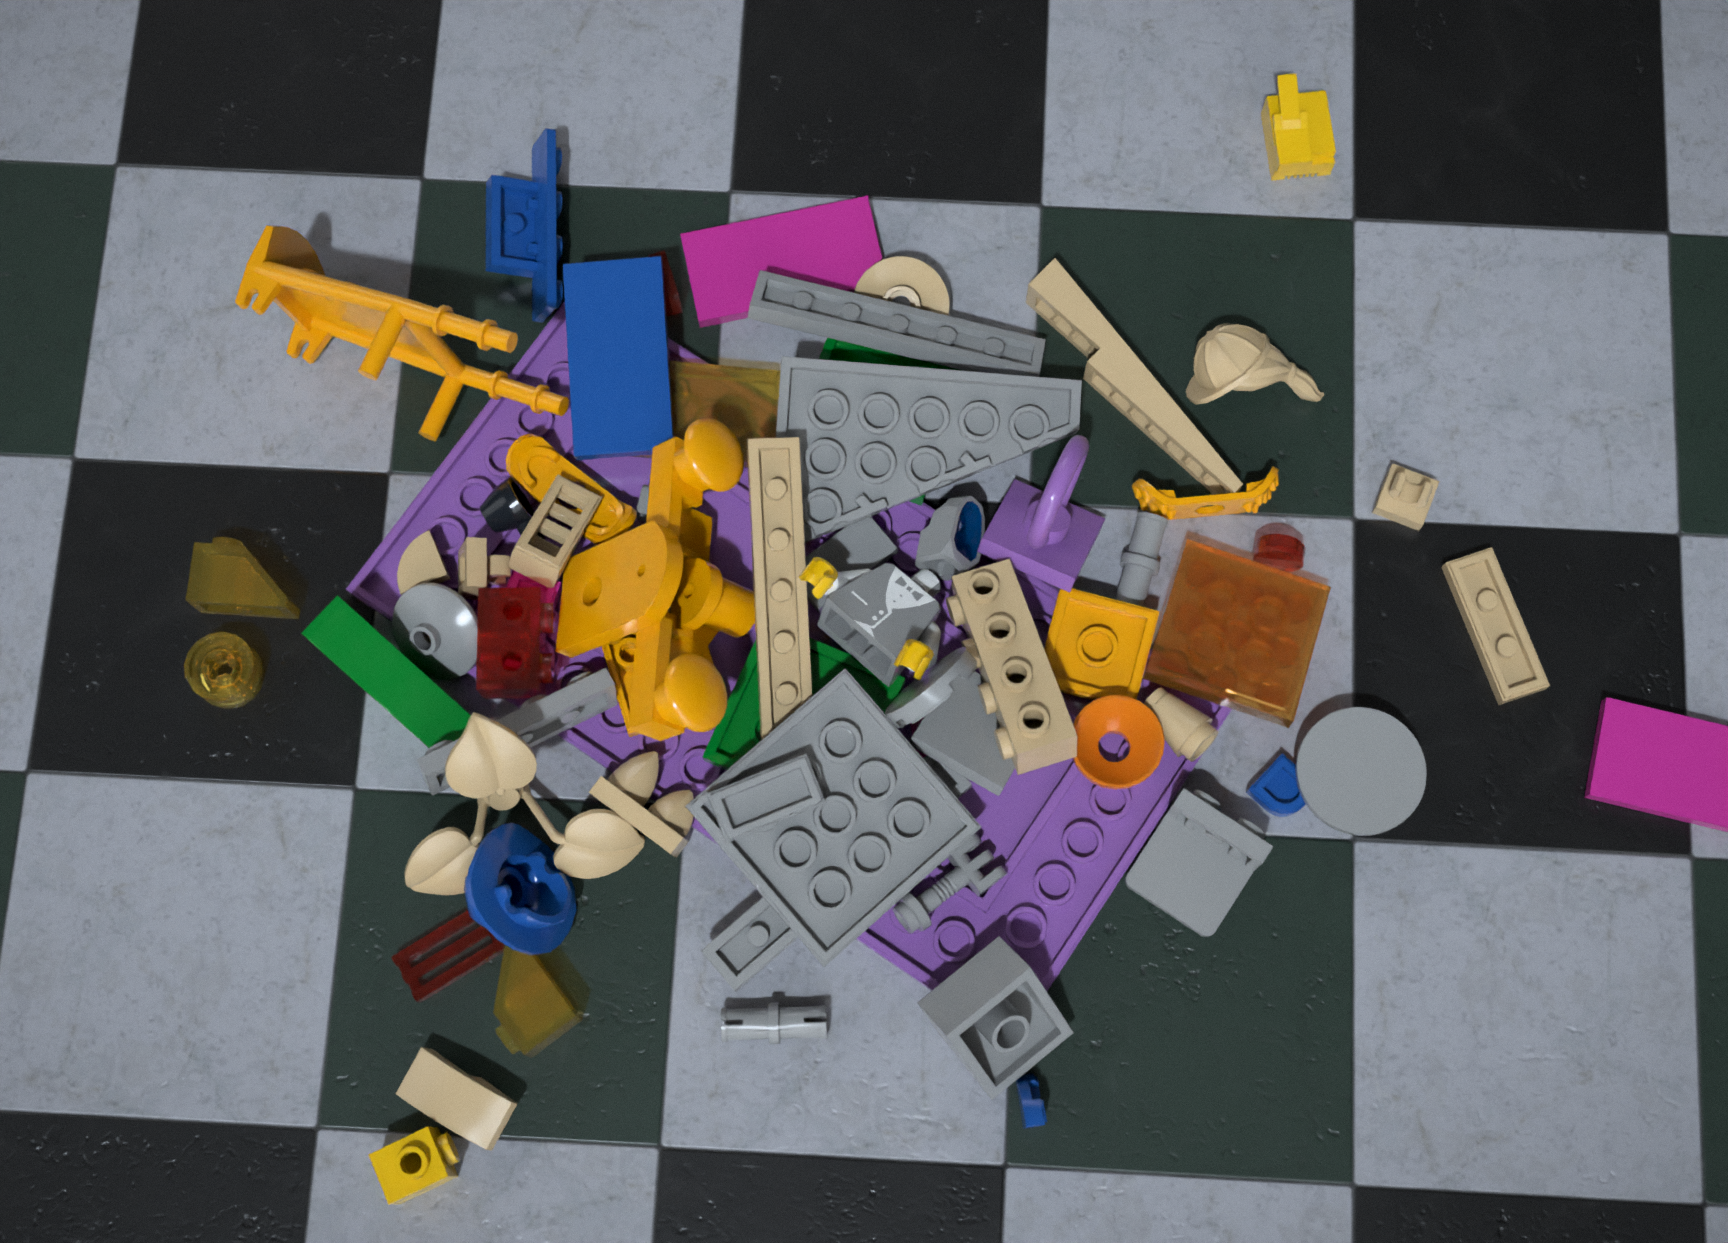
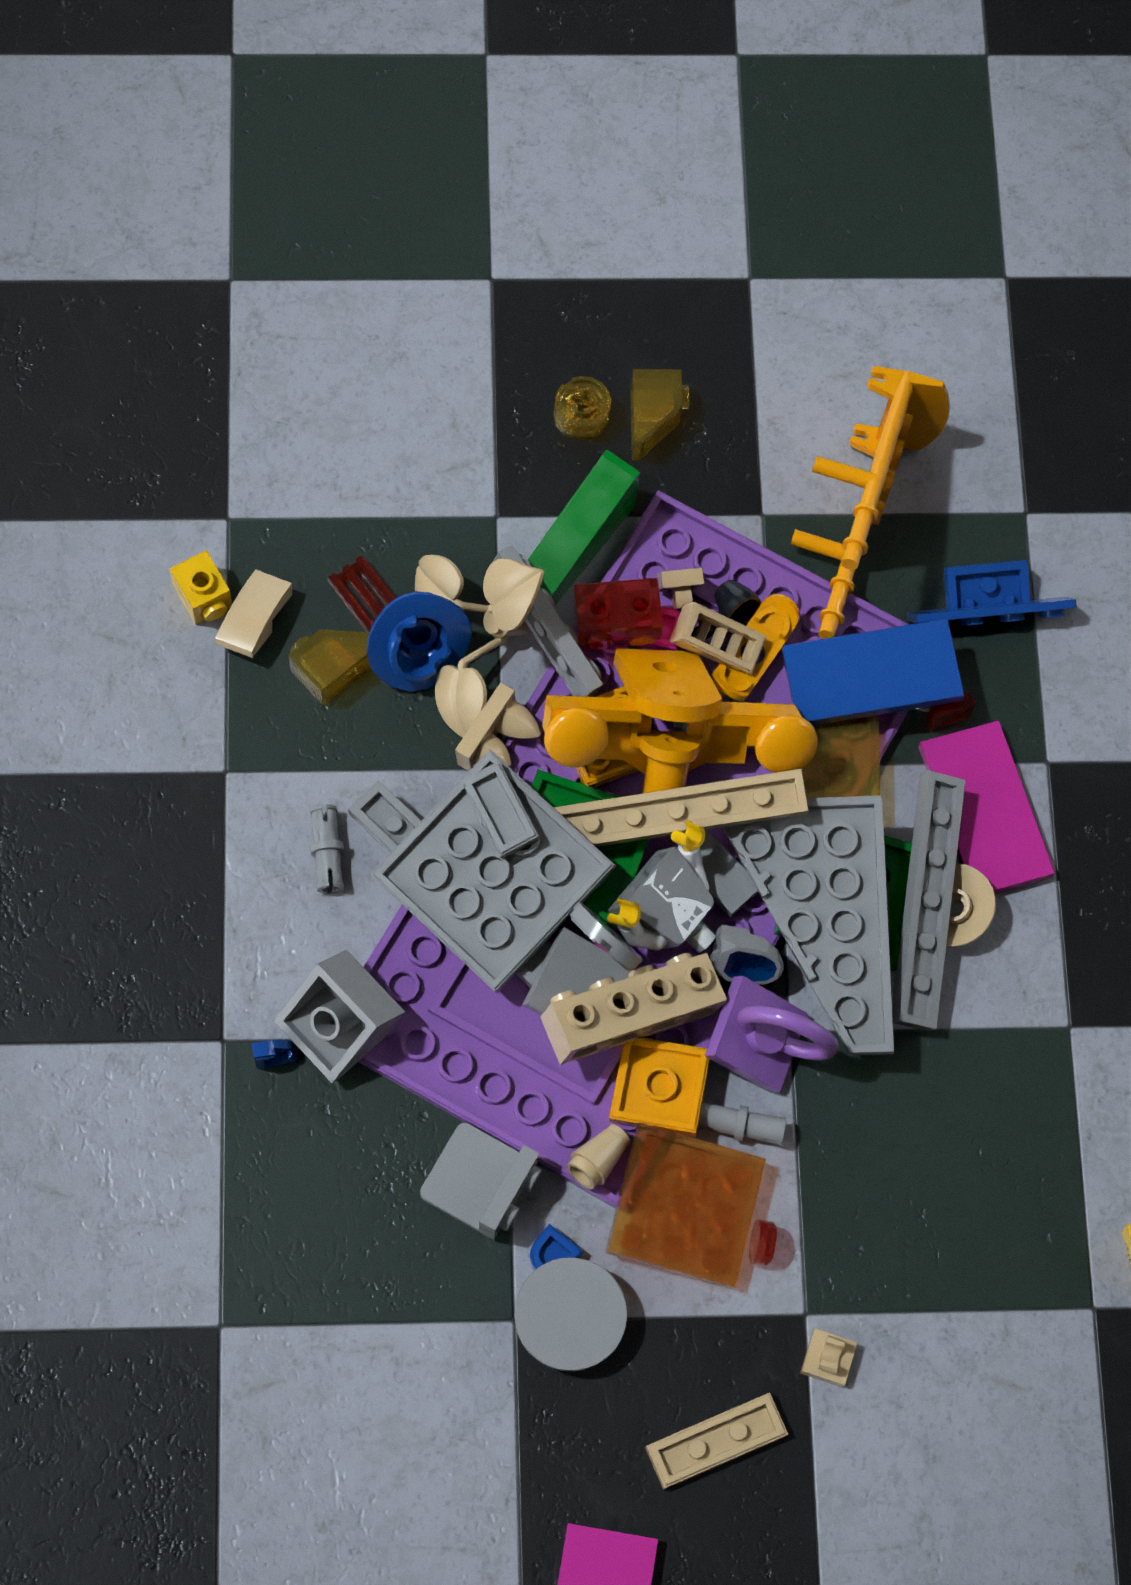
camera: 75 degrees right, 5 degrees down
(421, 564) = (680, 542): tan tile -> none
(448, 621) = (628, 555): light grey dish -> none
(914, 912) = (422, 946): light grey hinge -> none
(1124, 379) = (911, 1098): tan slope -> none
(1135, 724) = (576, 1078): orange piece -> none
(1168, 506) = (810, 1214): light orange piece -> none
(1243, 360) = (934, 1200): tan piece -> none

